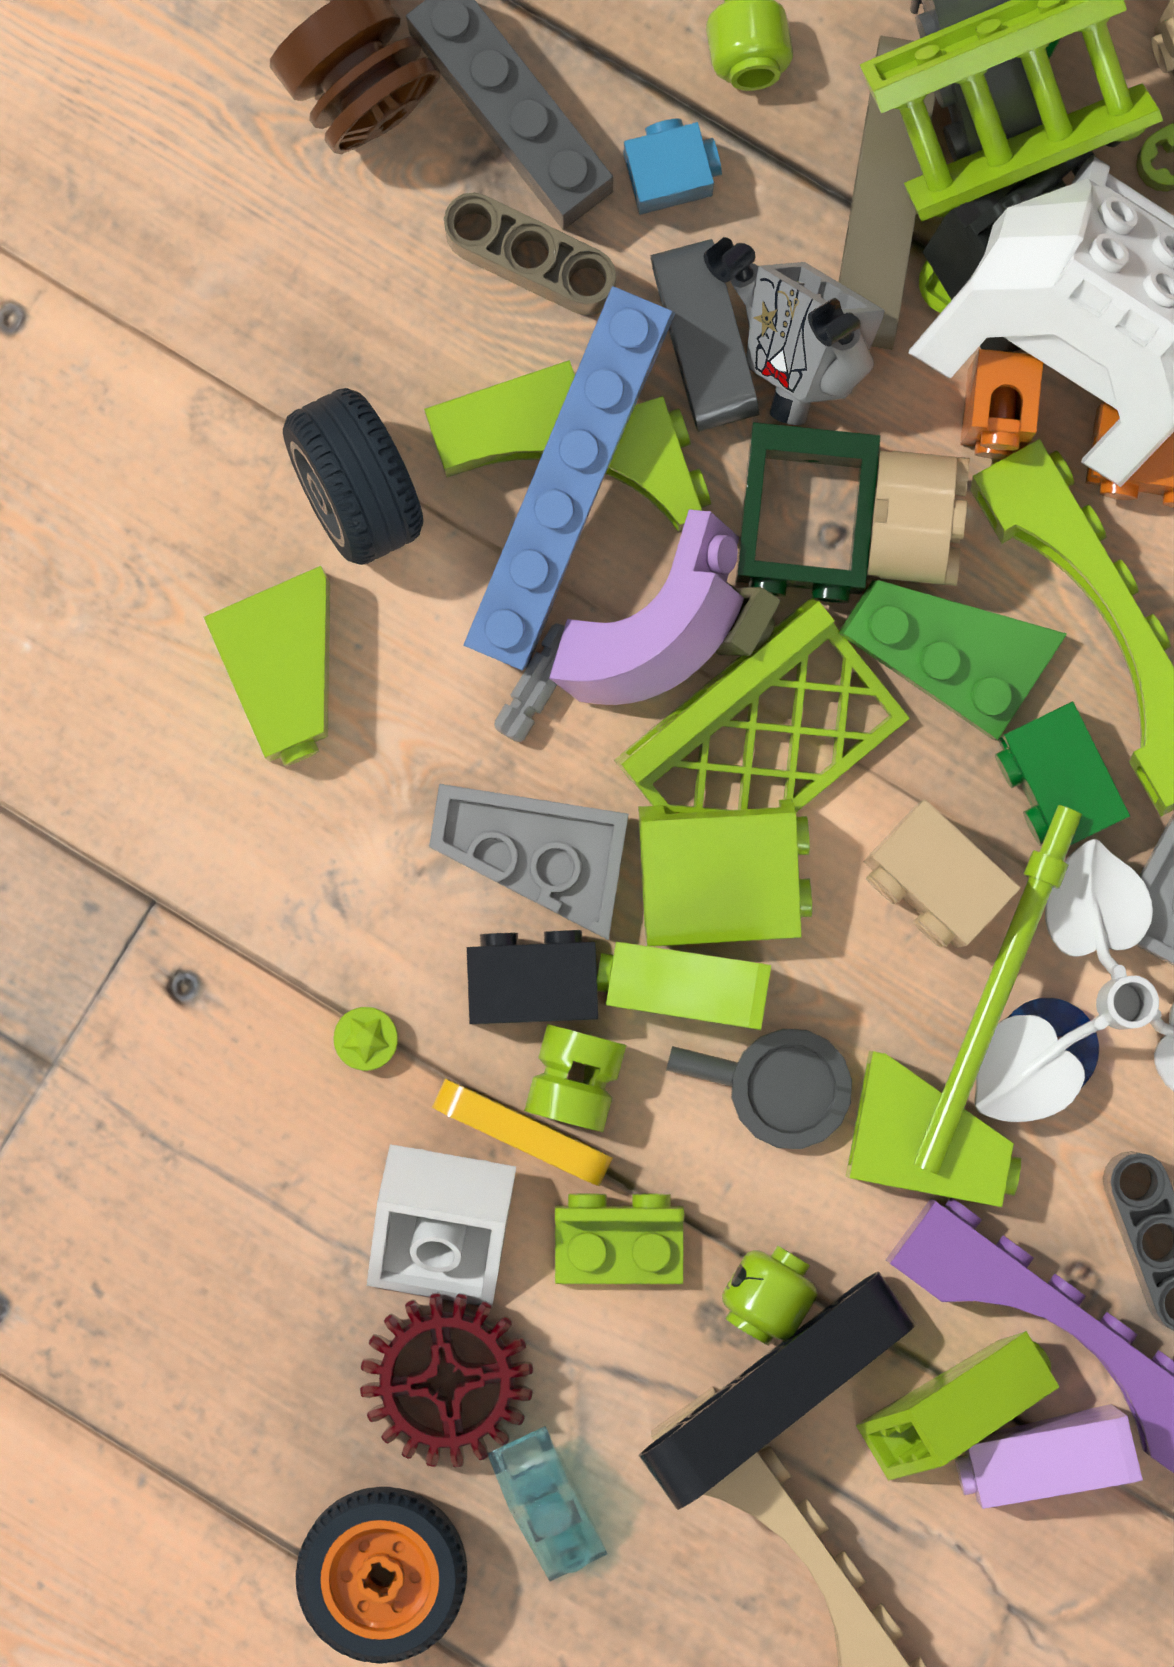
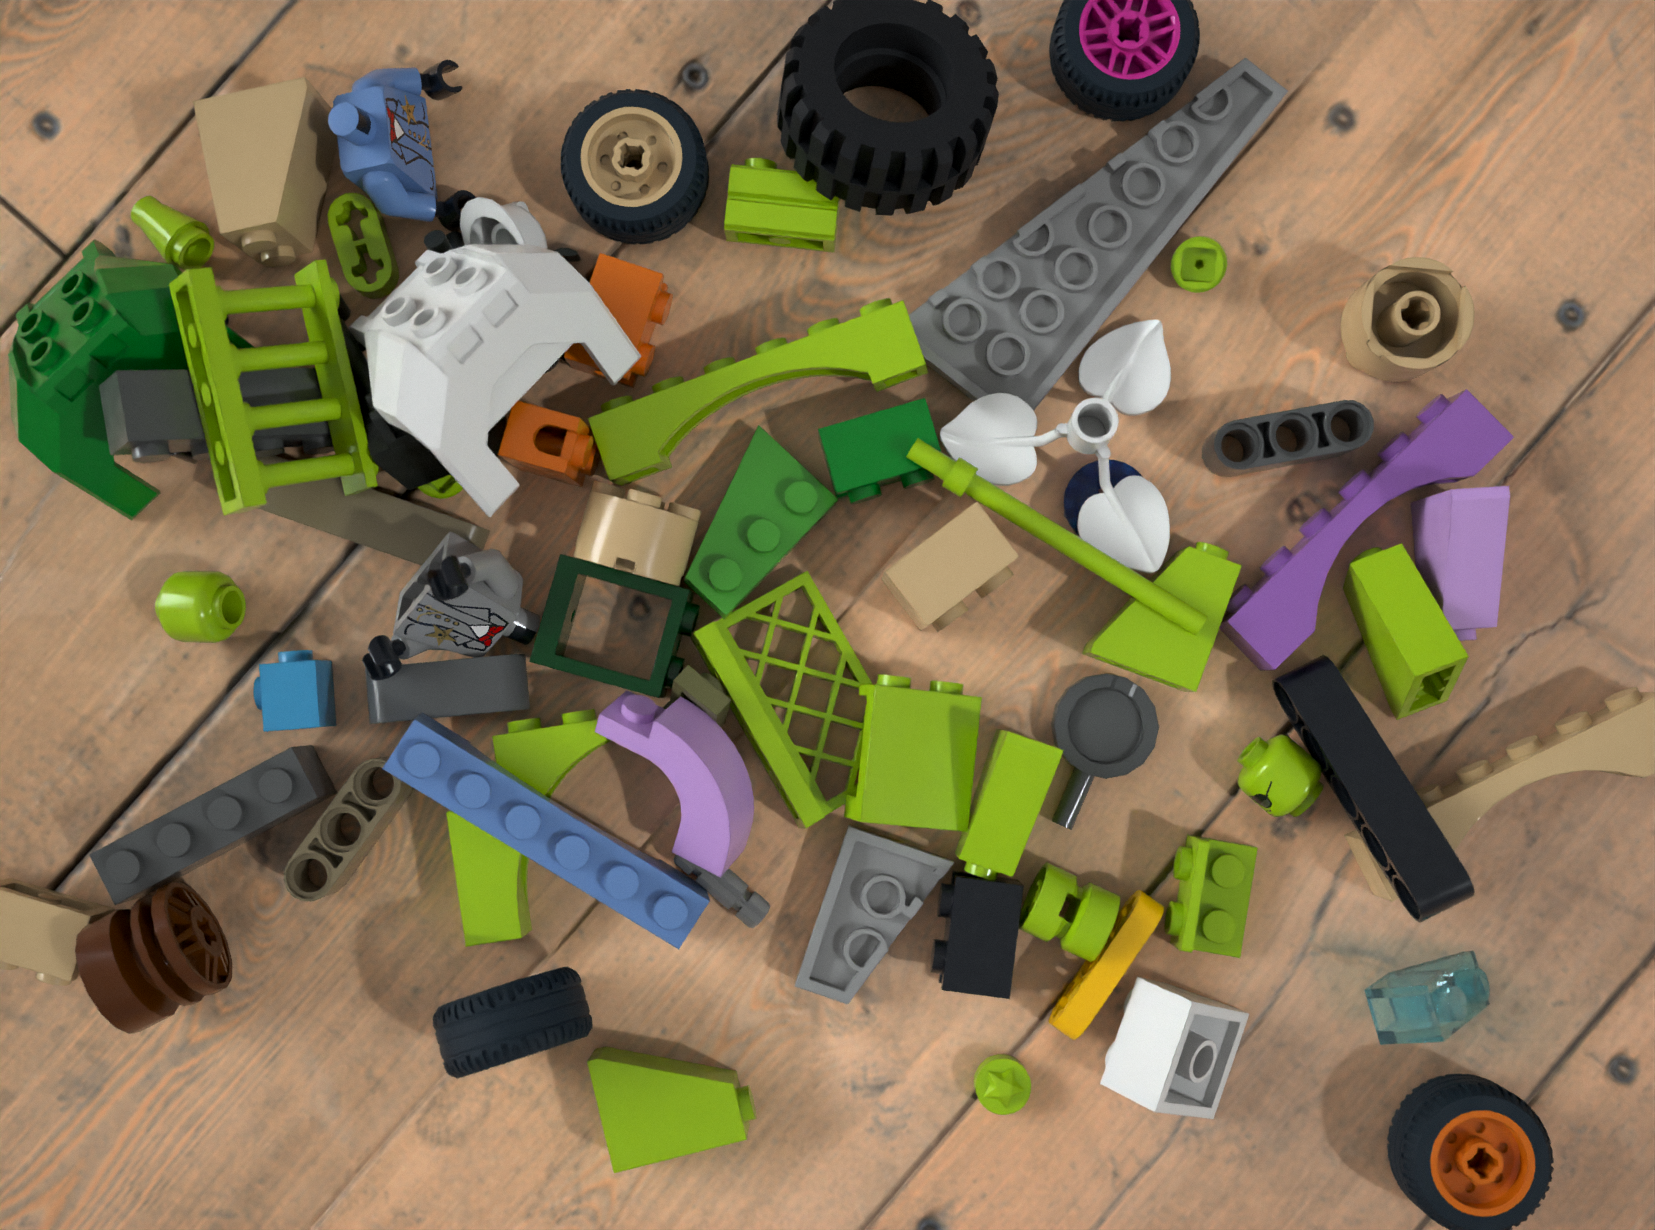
camera: 80 degrees left, 0 degrees up
(453, 1435) = (1312, 1111): dark red gear -> none

